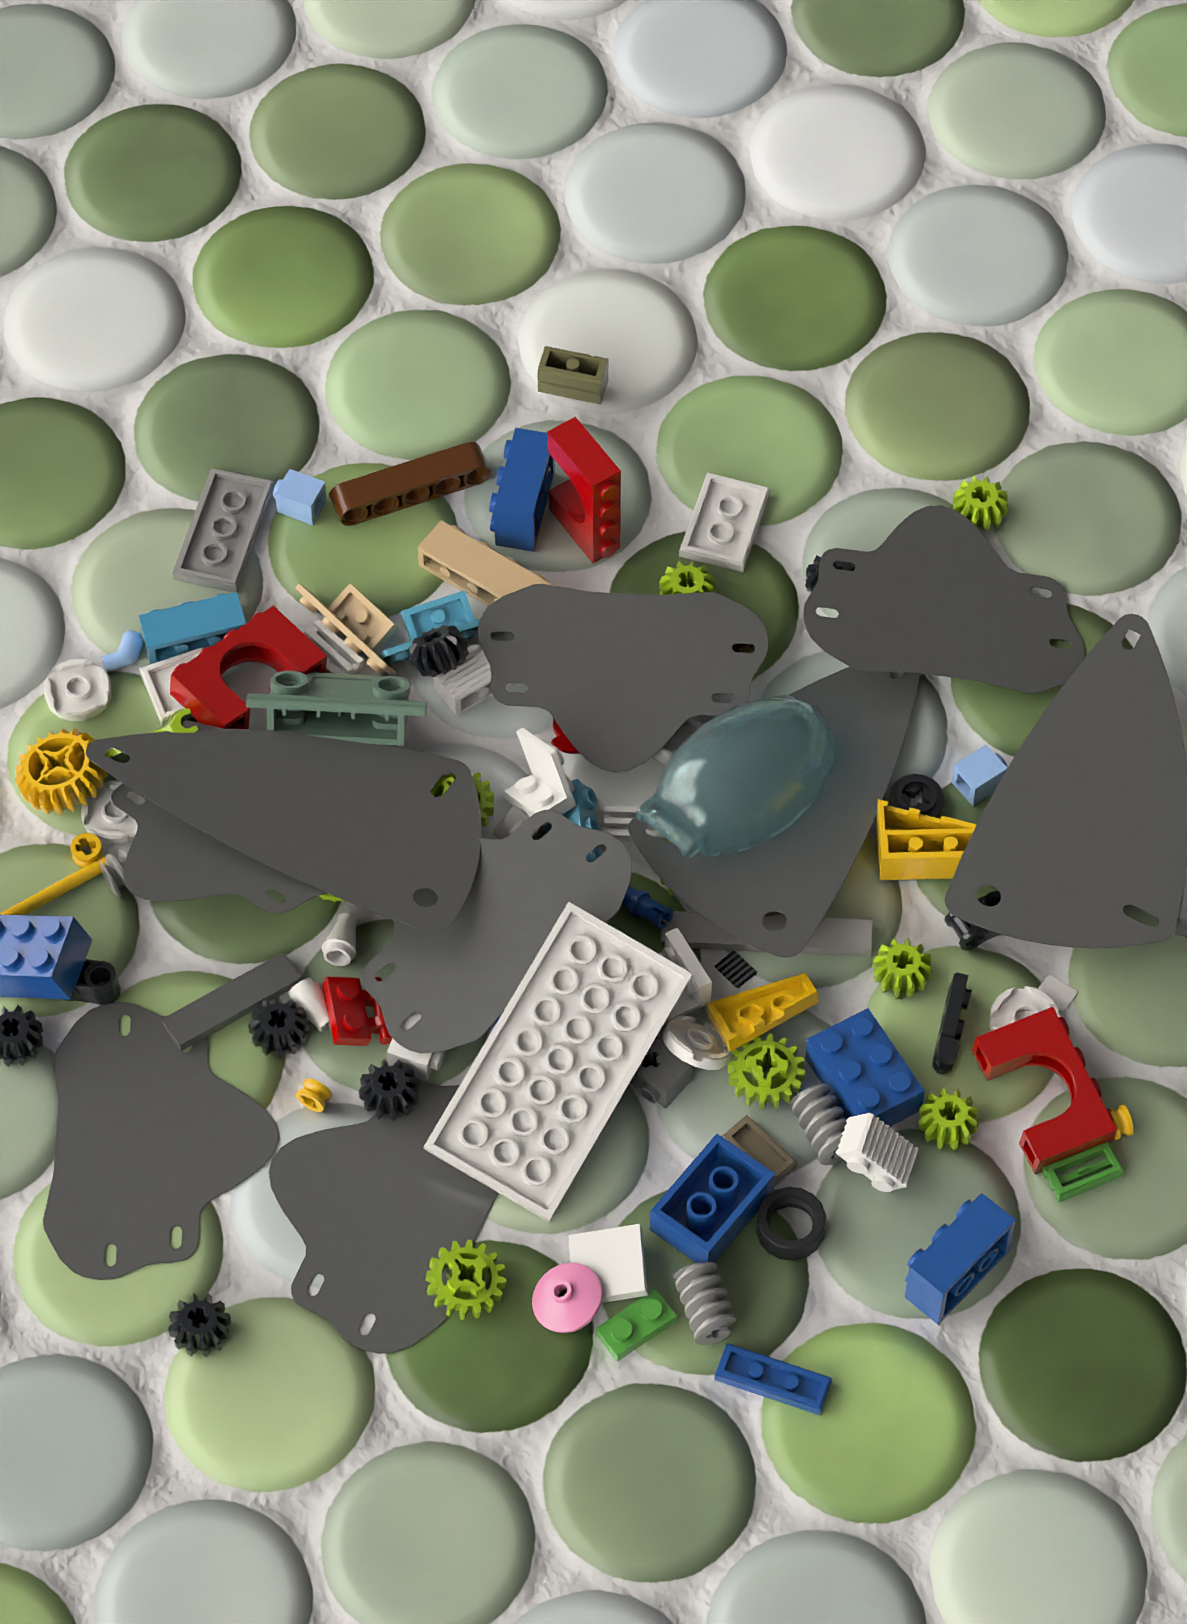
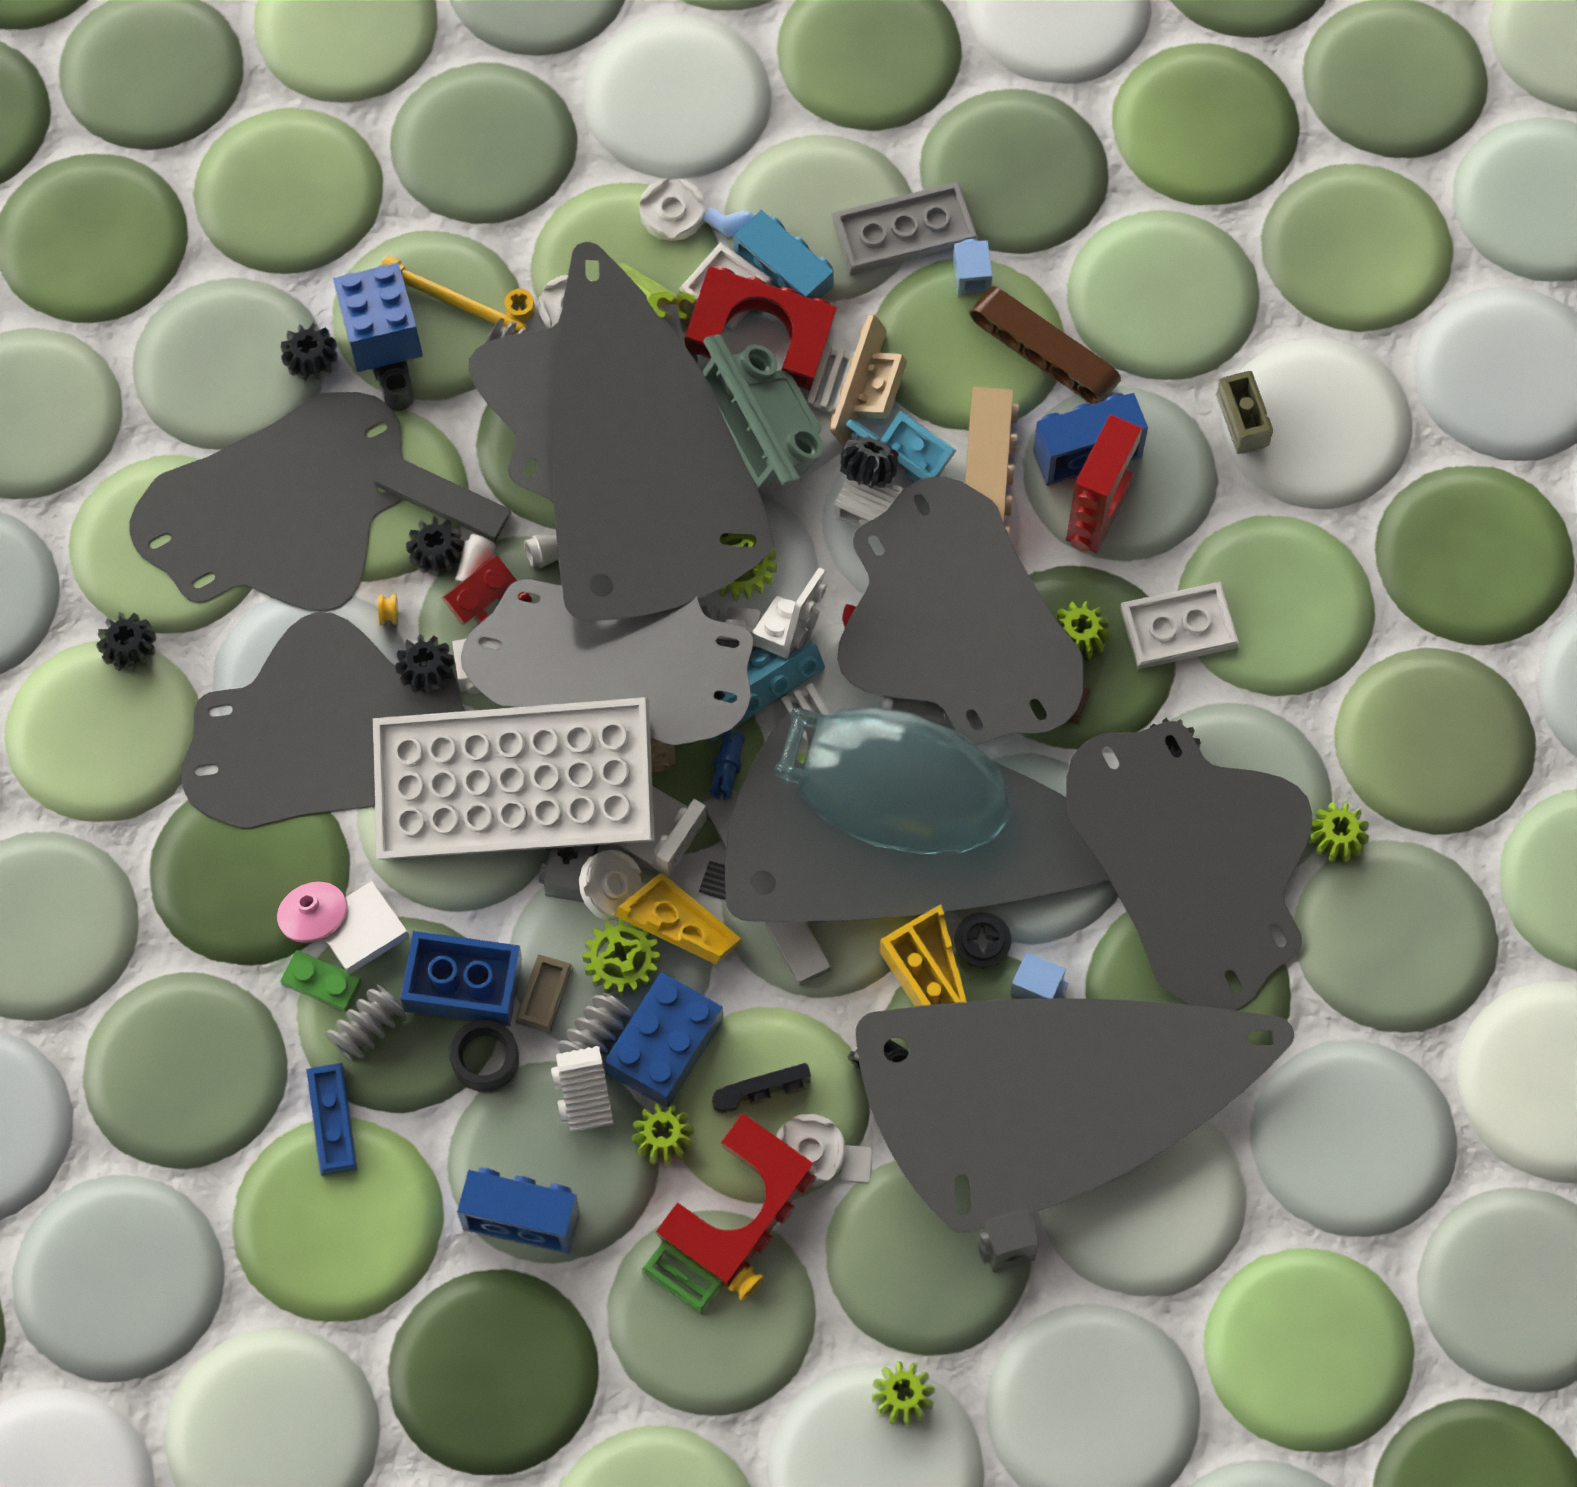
camera: 60 degrees right, 10 degrees up
(58, 773) = (565, 229): yellow gear -> none
(466, 1295) = (267, 816): lime gear -> none
(898, 956) = (784, 1025): lime gear -> none

